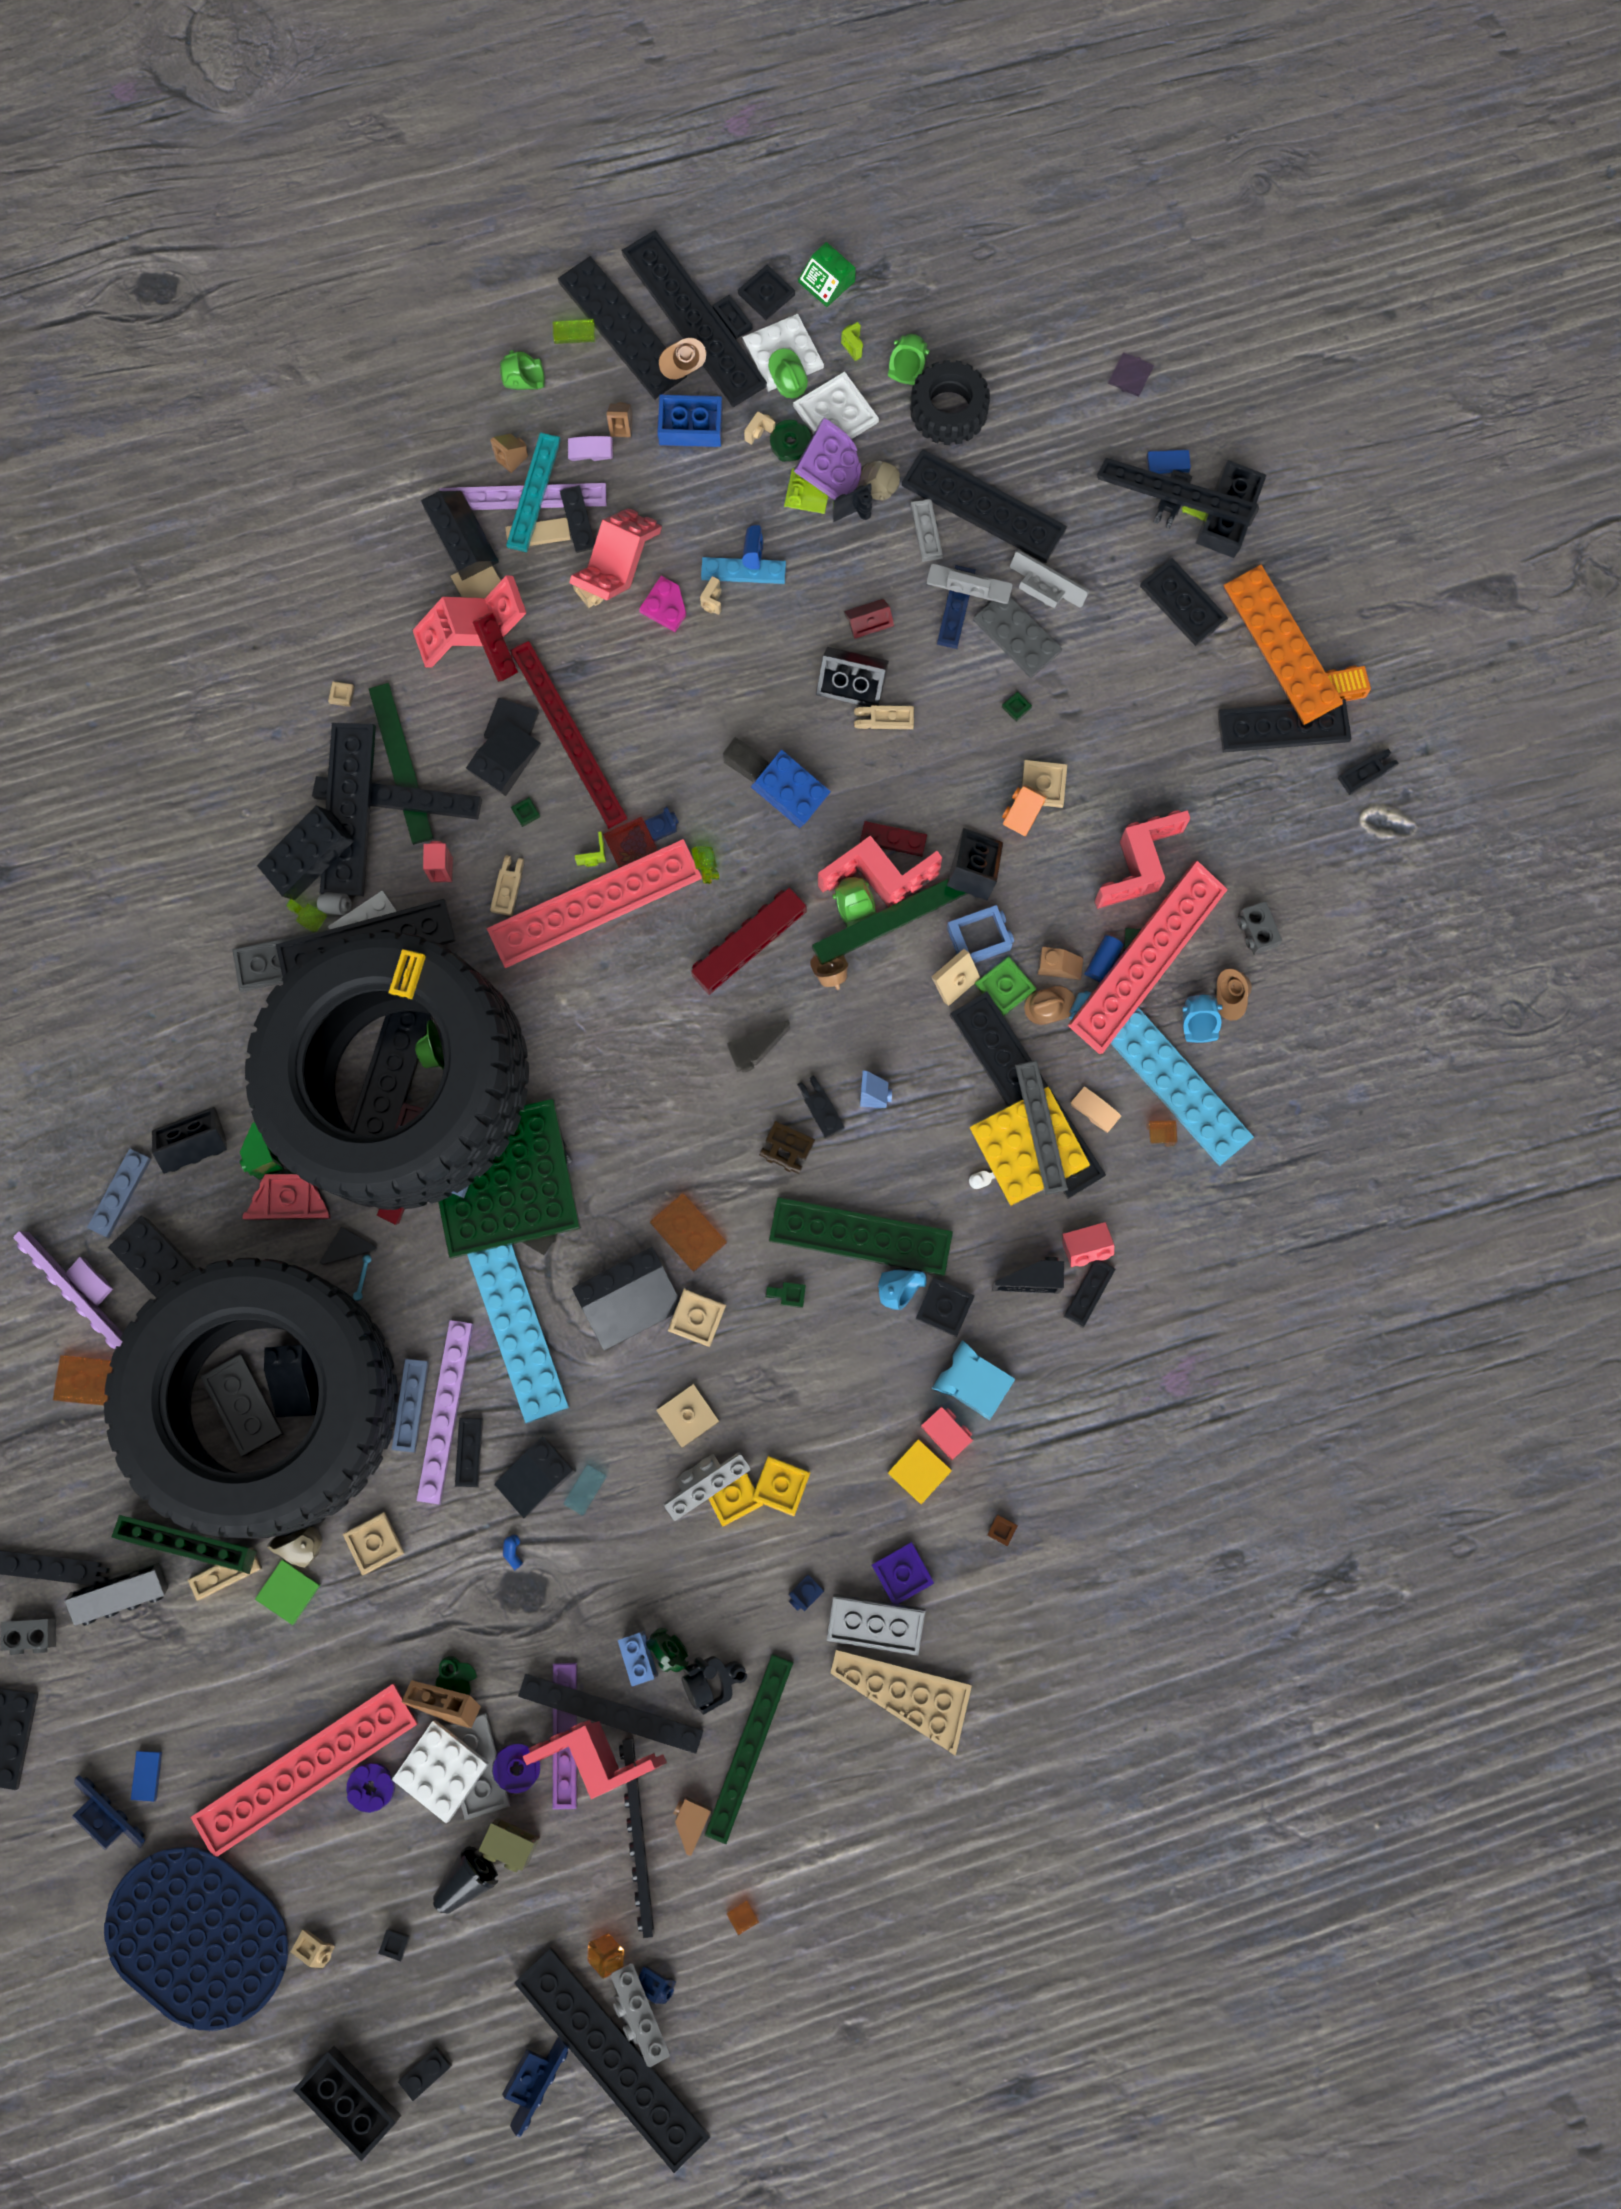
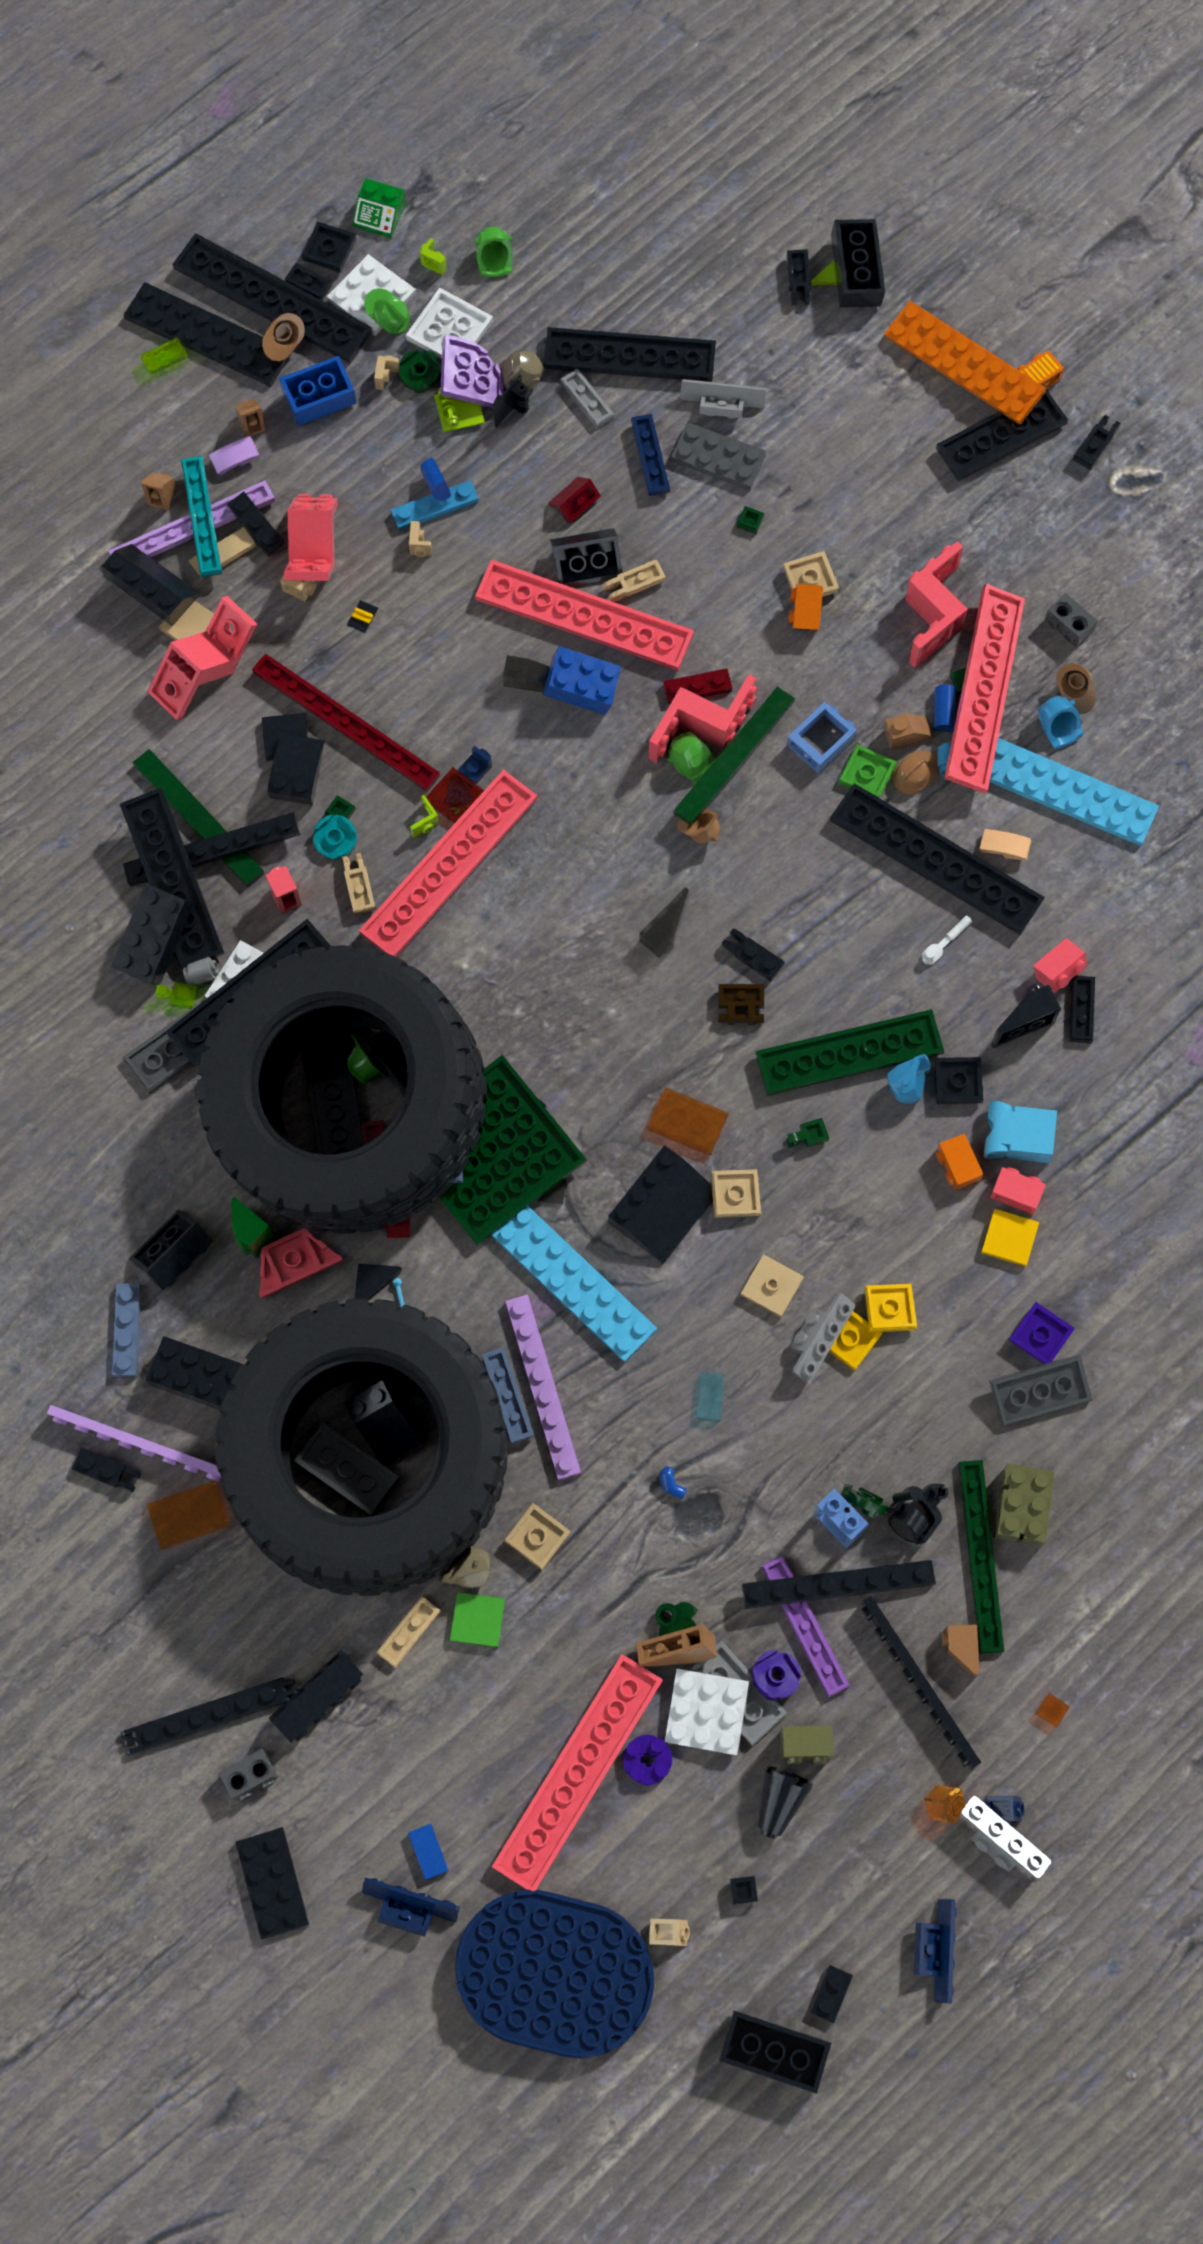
camera: 25 degrees left, 5 degrees down
(41, 1307) = (104, 1469): none -> black hinge
(88, 1281) = (140, 1422): lavender slope -> none
(184, 1544) = (359, 1618): dark green brick -> none
(341, 694) = (107, 779): tan tile -> none
(407, 974) = (338, 990): yellow tile -> none
(468, 1452) = (584, 1413): black tile -> none
(495, 647) = (238, 670): dark red plate -> none
(508, 834) = (335, 837): none -> teal tile
(521, 372) = (133, 413): bright green helmet -> none
(534, 1477) = (658, 1405): black slope -> none
(593, 1758) = (847, 1624): coral bracket -> none
(612, 2060) = (999, 1894): black plate -> none
(631, 644) = (362, 616): none -> black piece
(665, 604) = (376, 567): dark pink plate -> none
(705, 861) = (534, 781): clear neon green plate -> none
(748, 941) = (611, 834): dark red brick -> none
(805, 1593) = (961, 1394): dark blue bracket -> none
(808, 1722) = (1024, 1505): none -> olive piece
(825, 729) = (584, 615): none -> coral plate
(874, 1091) = (796, 916): medium blue slope -> none
(907, 1383) = (959, 1162): none -> orange brick
(917, 1698) = (1112, 1438): tan wing -> none
(952, 378) = (552, 251): black tyre -> none
(956, 977) = (820, 781): tan plate -> none
(969, 583) = (653, 428): light grey bracket -> none
(975, 864) = (787, 675): black slope -> none
(1002, 1530) = (1111, 1254): reddish brown plate -> none
(1011, 1152) = (963, 902): yellow plate -> none
(1041, 1127) = (967, 878): dark grey tile -> none
(1131, 374) = (704, 183): clear purple piece -> none
(1163, 1132) = (1077, 836): clear orange panel -> none
(1166, 461) = (777, 246): blue tile -> none
(1178, 492) = (803, 266): black plate -> none
(1183, 602) = (856, 363): black plate -> none

